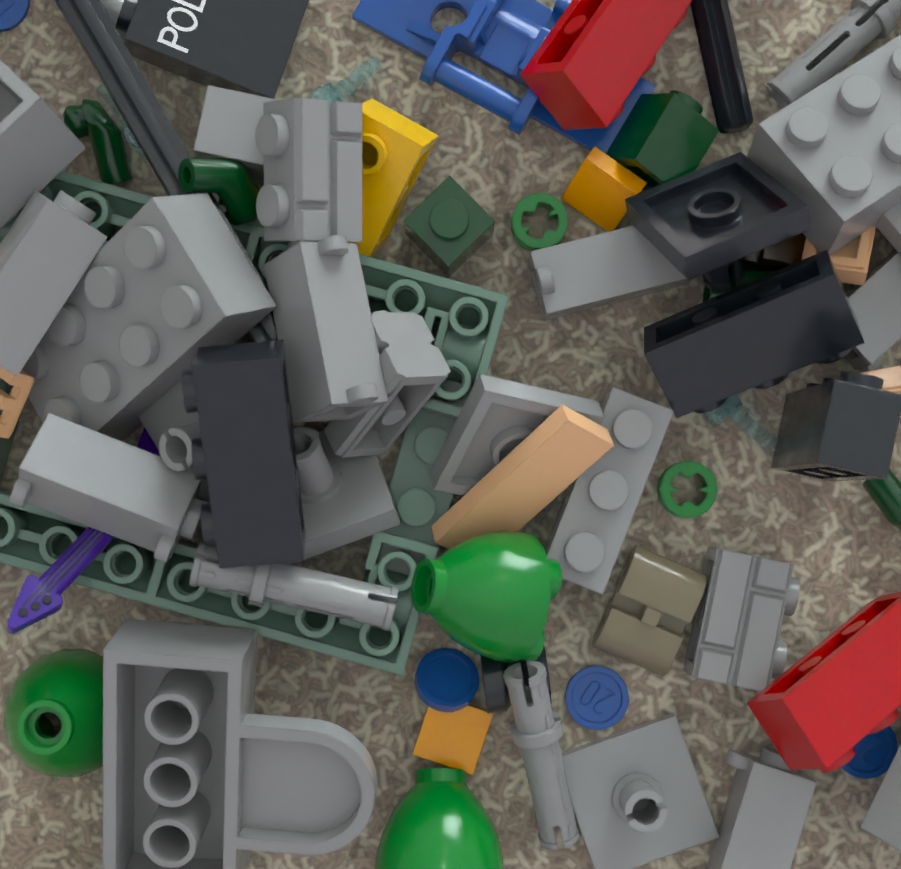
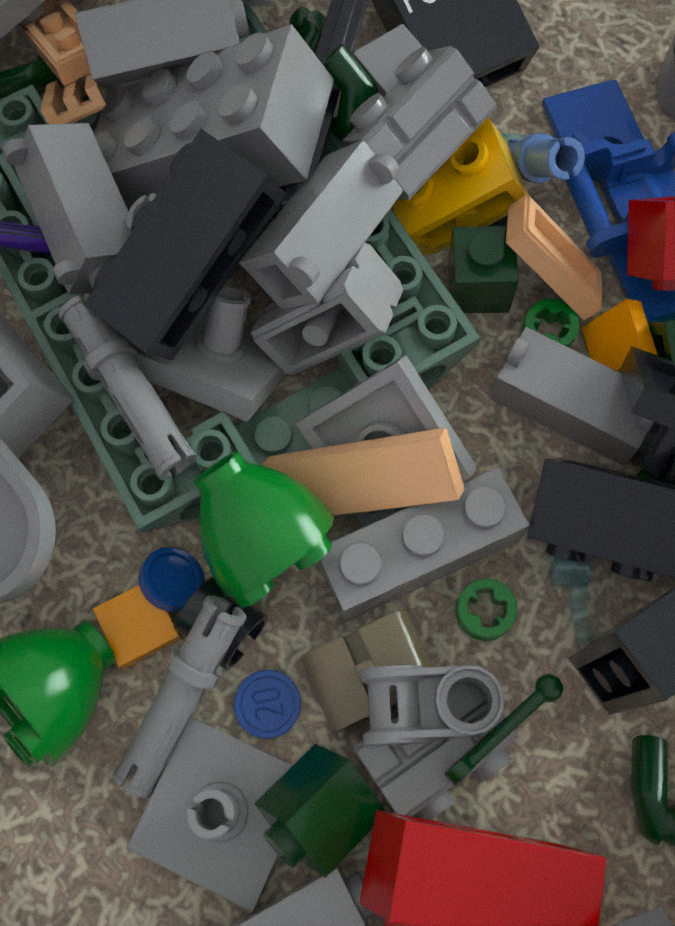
camera: 50 degrees right, 15 degrees down
(413, 91) = (543, 157): none -> medium blue pin
(499, 170) = (554, 257): none -> light nougat tile
(705, 737) = (318, 810): none -> dark green brick
(719, 609) = (423, 703): none -> light grey piece
(785, 515) = (547, 689): none -> dark green hinge

